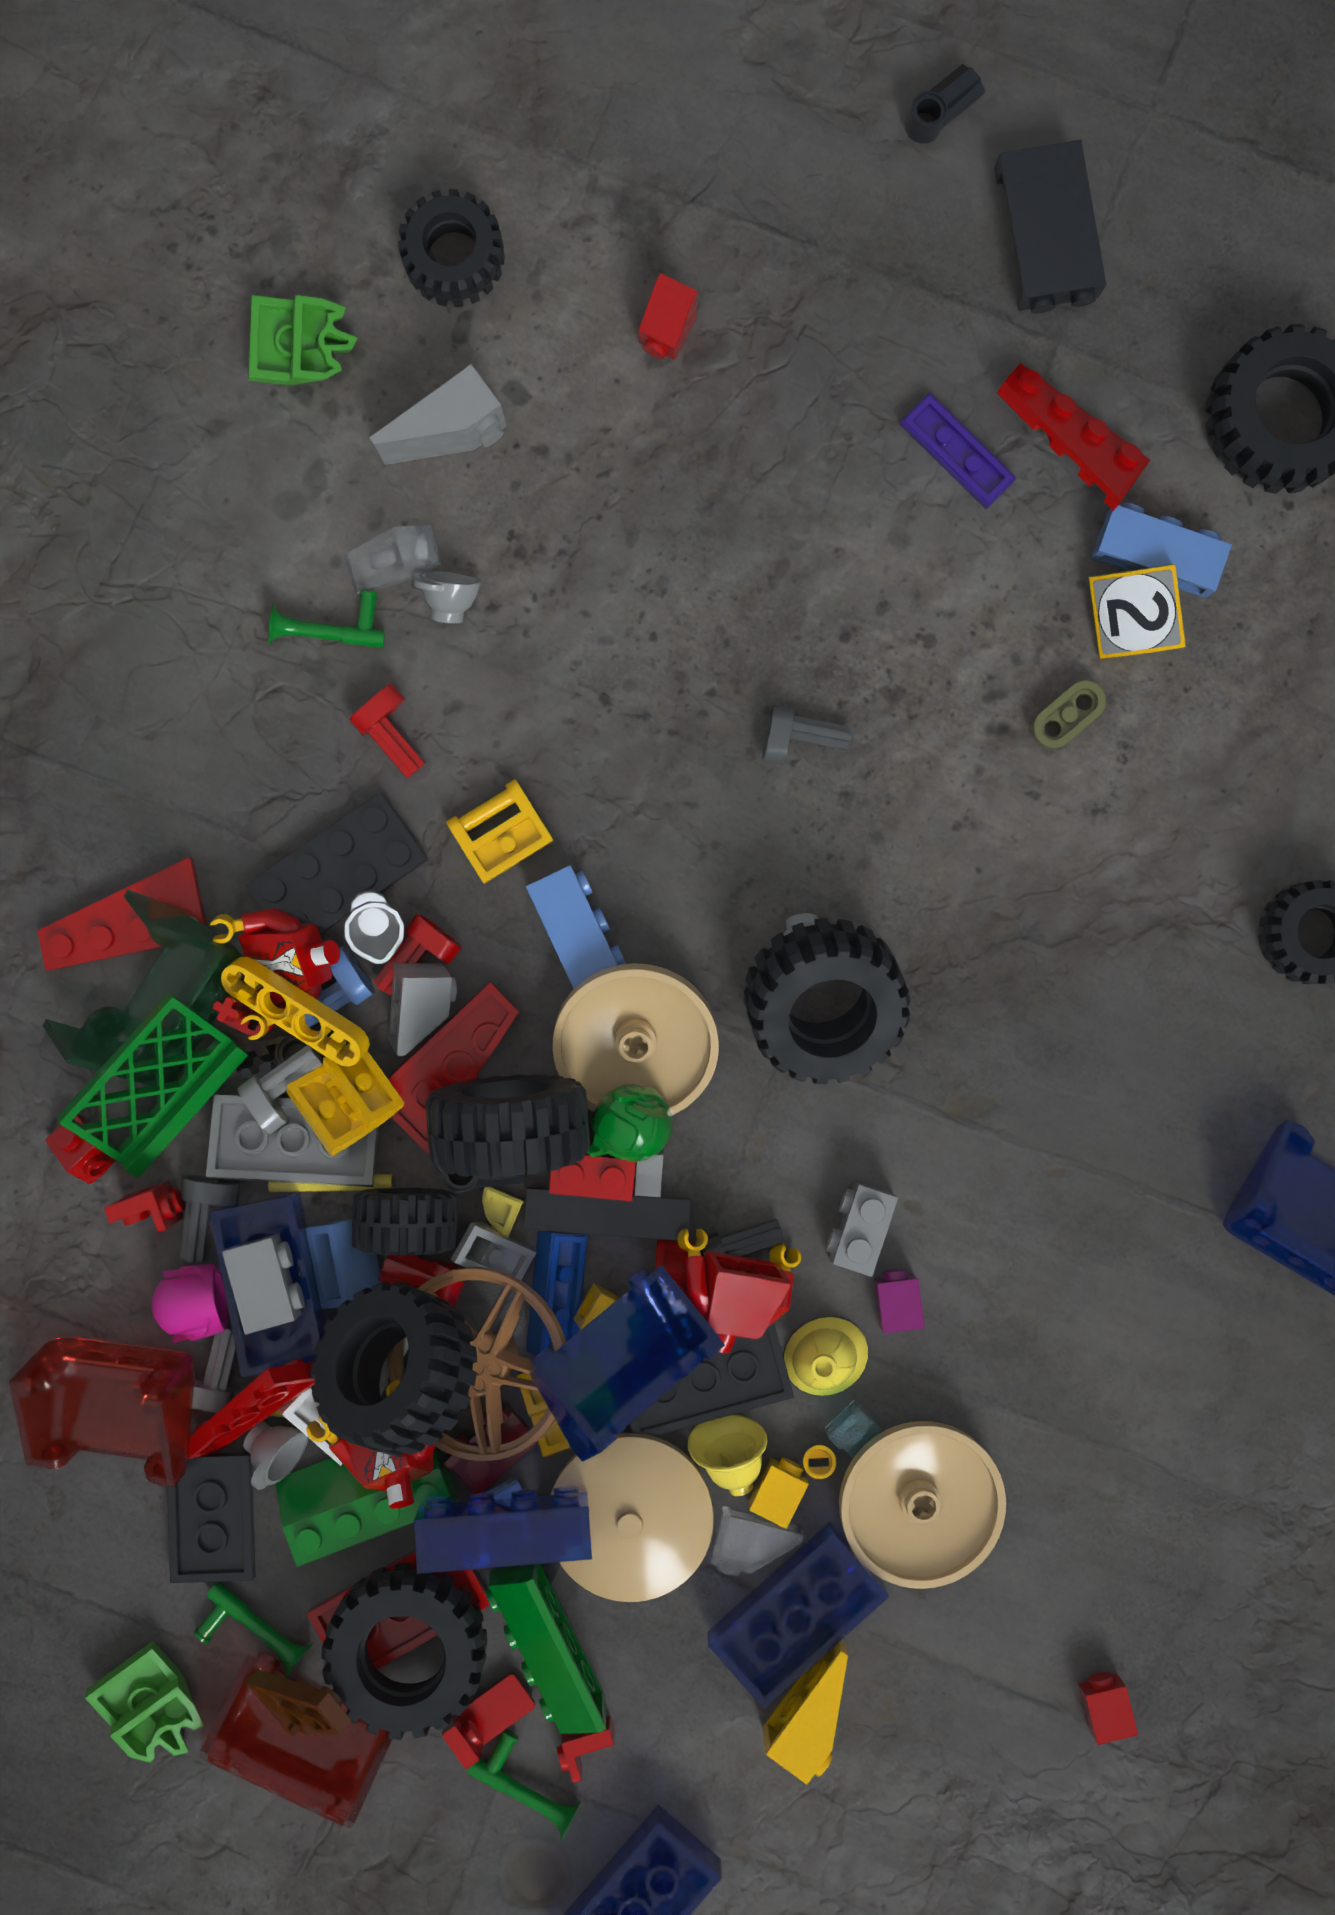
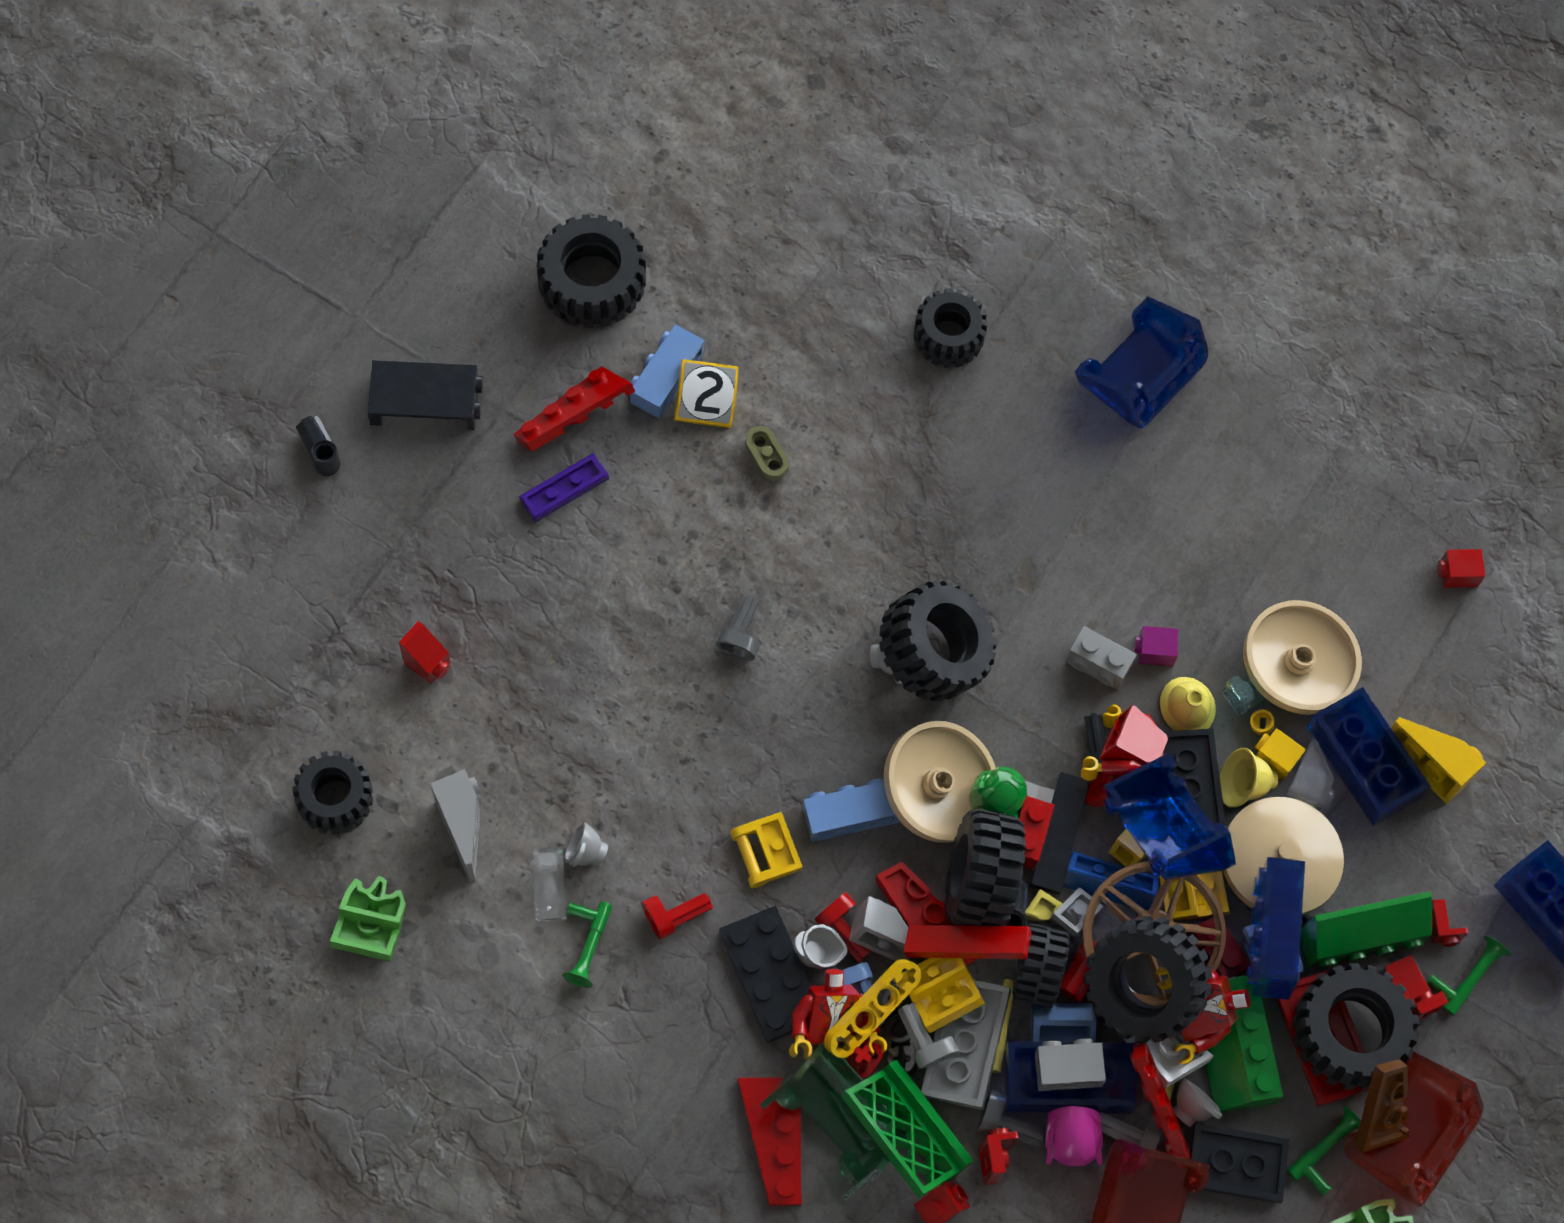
camera: 80 degrees left, 20 degrees down
(404, 1120) = (967, 942): none -> red tile

